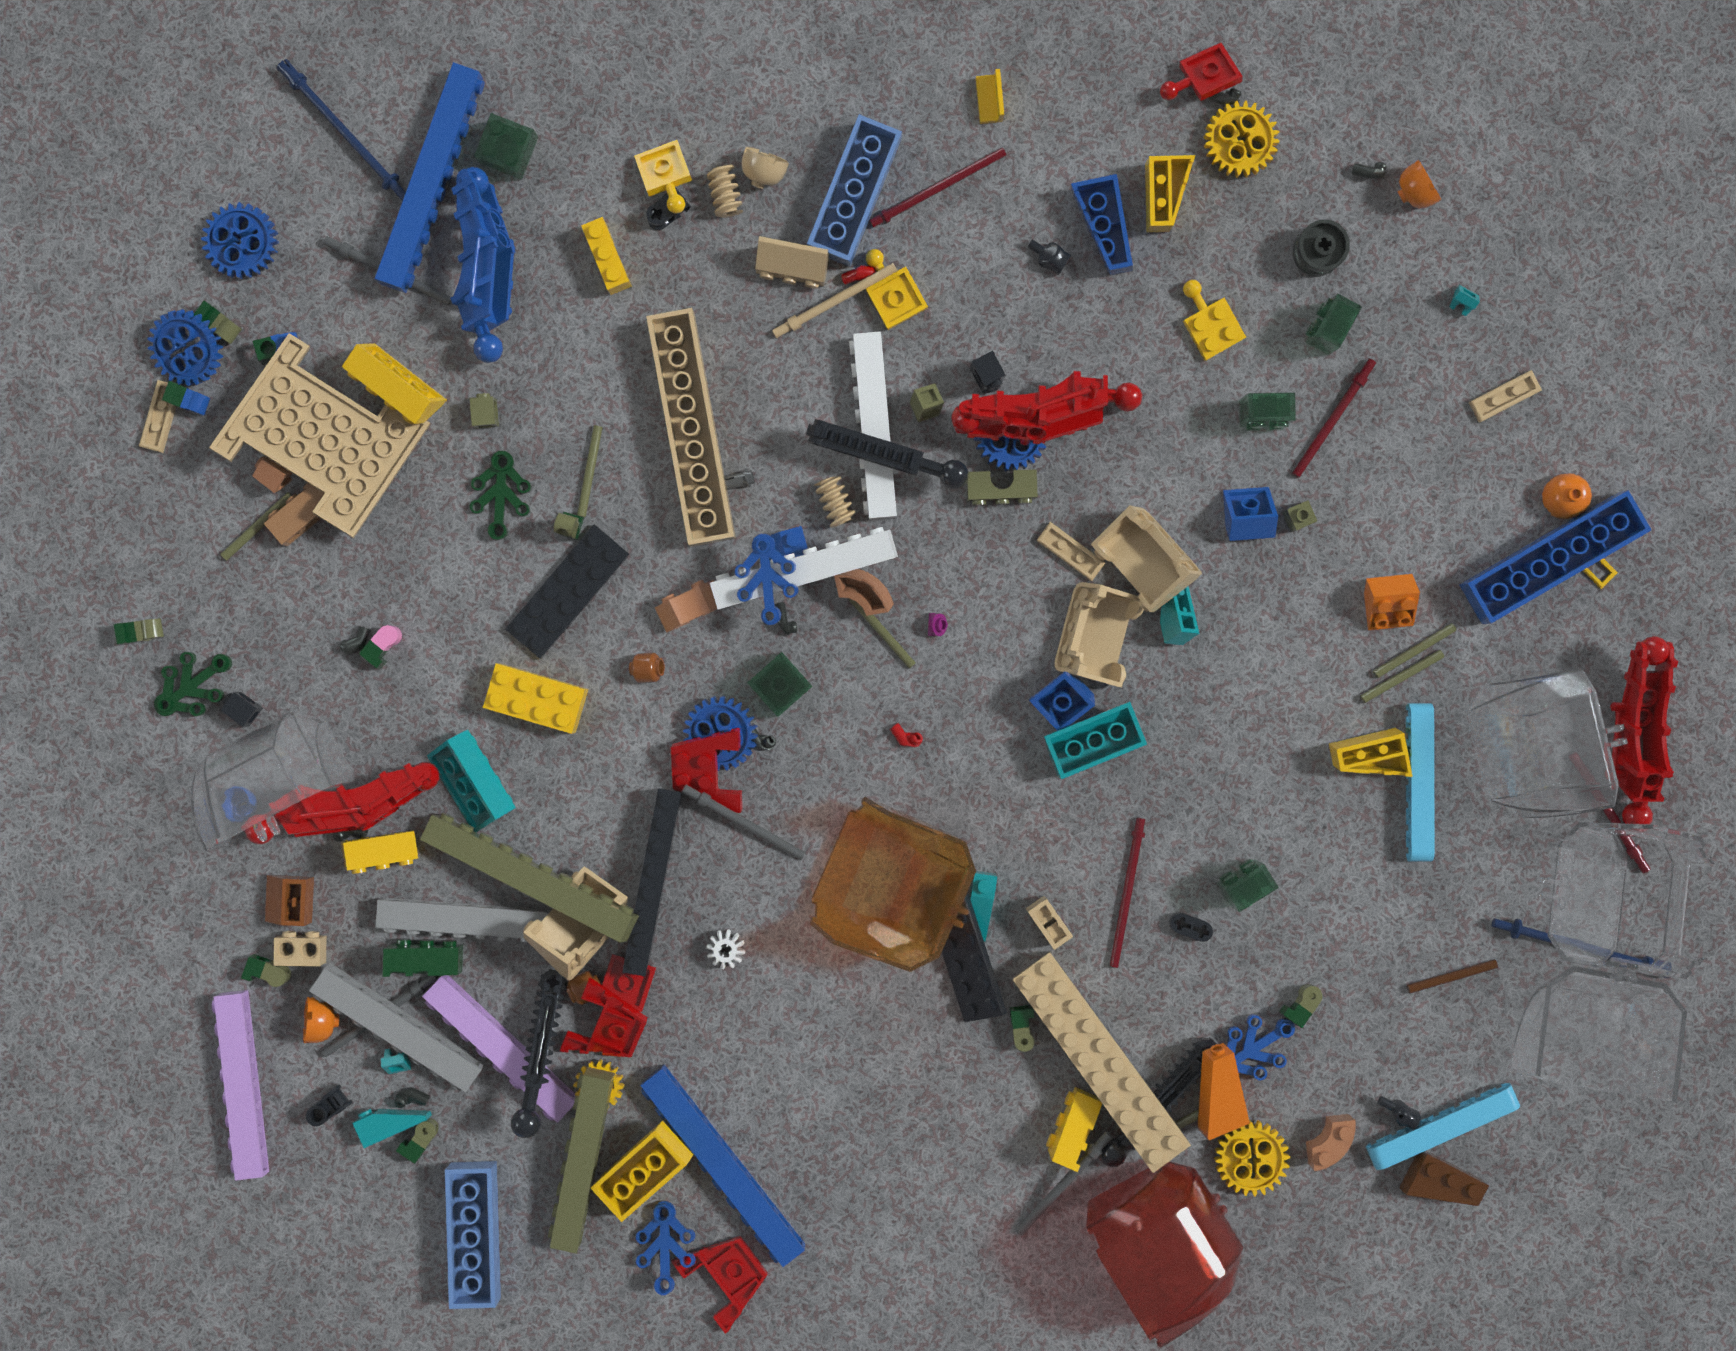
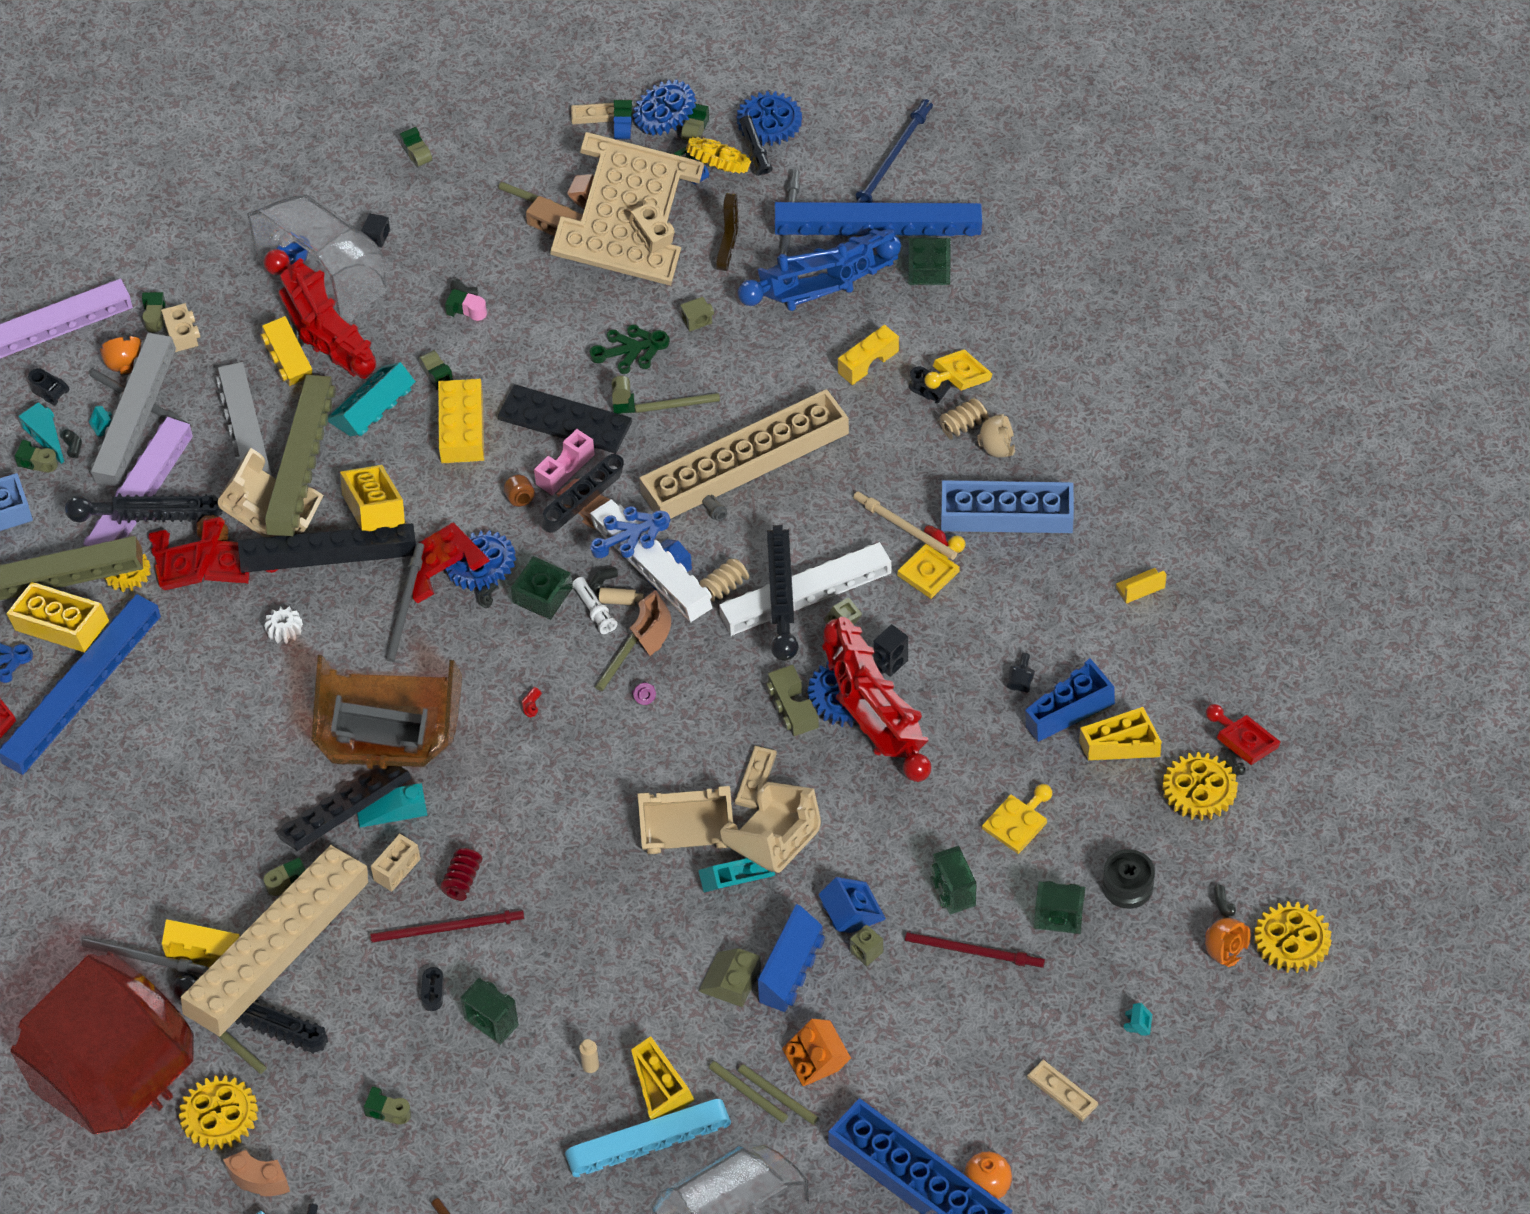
camera: 75 degrees right, 35 degrees down
(189, 686) = (383, 193): dark green plant -> none
(268, 326) = (728, 160): none -> yellow gear
(289, 270) = (757, 153): none -> black pin
(289, 900) = (222, 310): dark orange slope -> none
(362, 426) = (648, 228): none -> tan brick
(393, 383) = (694, 244): yellow slope -> none
(395, 343) = (731, 227): none -> dark brown beam
(423, 958) = (200, 407): dark green wedge -> none
(455, 702) = (435, 367): none -> leg
(615, 821) = (372, 497): none -> yellow brick
(631, 610) = (576, 452): none -> bright pink arch
(689, 597) = (576, 500): none -> black beam
(791, 262) = (922, 481): tan slope -> none
(813, 609) = (619, 596): none -> tan cylinder
(824, 637) = (598, 611): none -> white pin
(886, 215) = (999, 542): dark red bar -> none
(893, 890) = (379, 726): none -> dark grey windscreen
(1063, 700) = (612, 801): blue slope -> none
(1081, 864) = (461, 873): none -> dark red piece
(1094, 740) = (583, 842): teal slope -> none
(1221, 1094) = (274, 1055): orange slope -> none
(1252, 1049) = (329, 1079): blue plant -> none
(1282, 651) = (732, 976): none -> olive slope
(1292, 592) = (790, 960): none -> blue slope
(1324, 809) = (589, 1056): none -> tan cylinder
(1453, 120) = (1304, 951): none -> yellow gear

